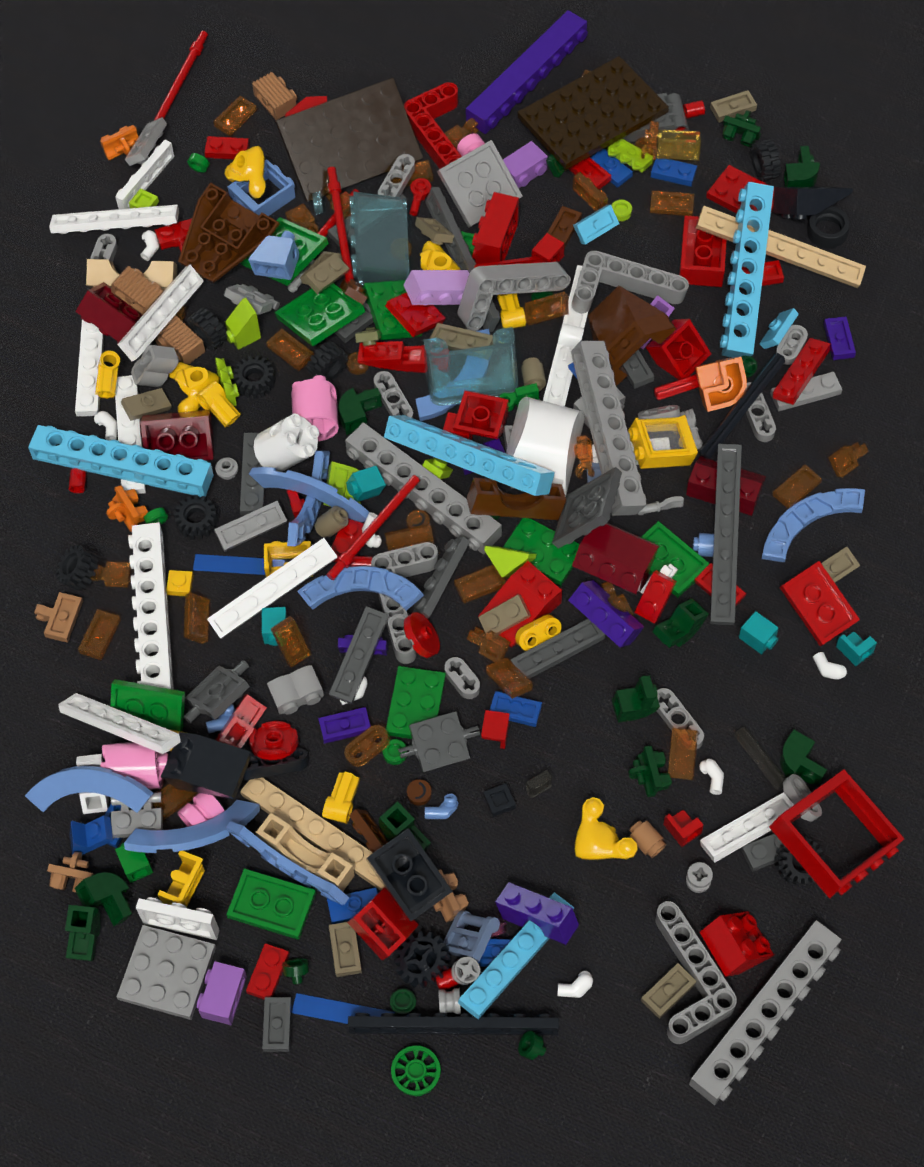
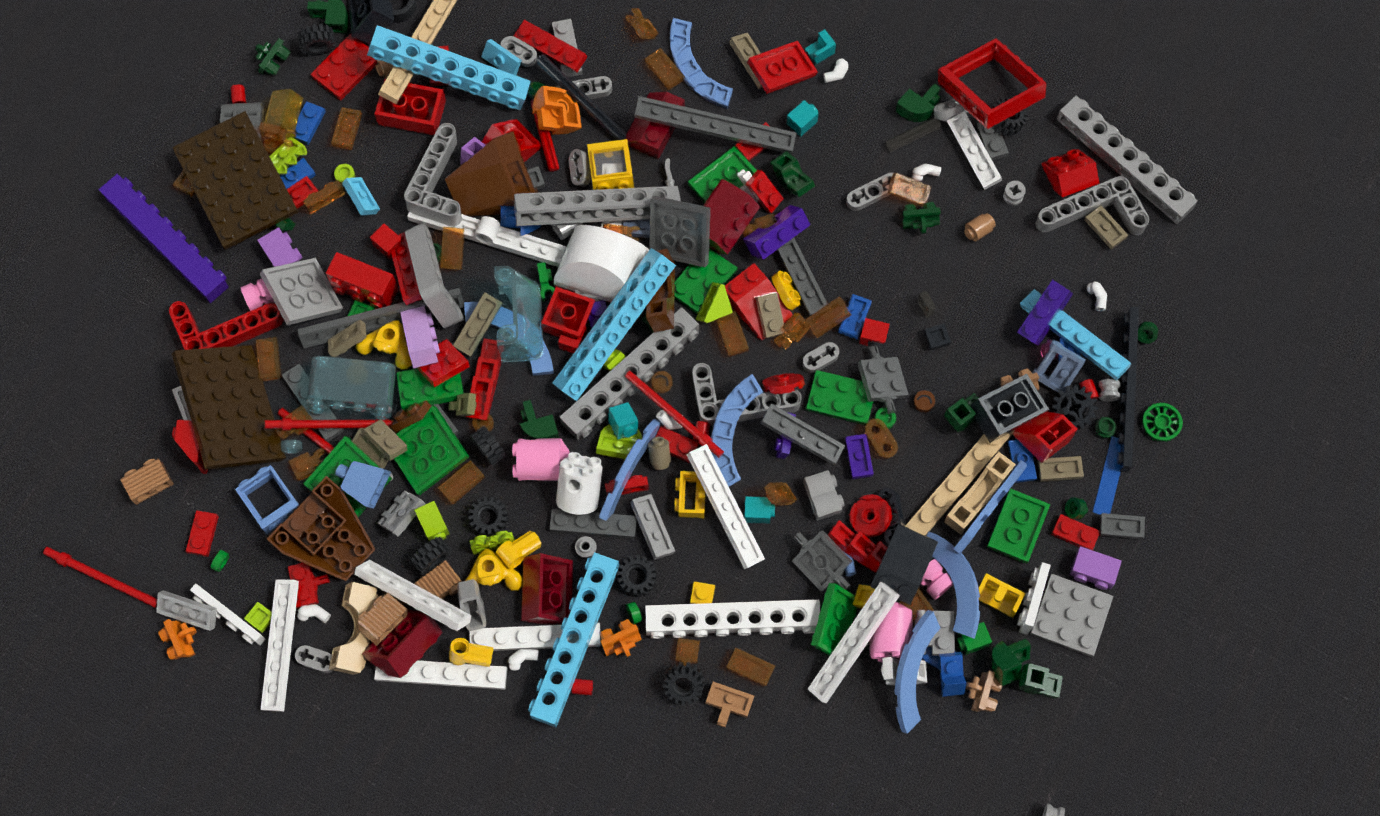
camera: 85 degrees left, 10 degrees up
(146, 404) = (507, 618): dark tan plate -> none
(196, 618) = (743, 578): clear orange plate -> none
(232, 564) = (686, 547): blue sticker -> none
(234, 115) = (164, 522): clear orange plate -> none
(249, 167) = (248, 505): yellow head -> none
(306, 518) = (662, 475): medium blue tile -> none
(340, 803) = (933, 465): yellow piece -> none
(368, 828) = (967, 437): reddish brown plate -> none
(393, 389) = (545, 393): light grey beam -> none
(396, 171) = (276, 360): light grey beam -> none
(409, 537) = (683, 388): clear orange plate -> none
(420, 189) = (289, 350): red plate -> none
(443, 571) = (720, 362): dark grey plate -> none
(445, 810) = (941, 382): medium blue arm -> none
(457, 133) = (230, 309): clear orange plate -> none
(469, 967) = (1095, 371): light grey wheel -> none
(511, 313) = (454, 278): yellow piece -> none
(533, 373) = (524, 265): dark tan brick -> none
(563, 227) = (357, 225): reddish brown plate -> none
(598, 839) = (978, 263): yellow head -> none
(636, 702) = (859, 218): dark green brick -> none
(683, 827) = (971, 199): red panel -> none
(691, 419) = (582, 144): light grey piece -> none
(704, 544) = (714, 147): medium blue brick -> none
(732, 105) = (241, 60): dark tan plate -> none
(840, 337) = (517, 12): dark purple plate -> none

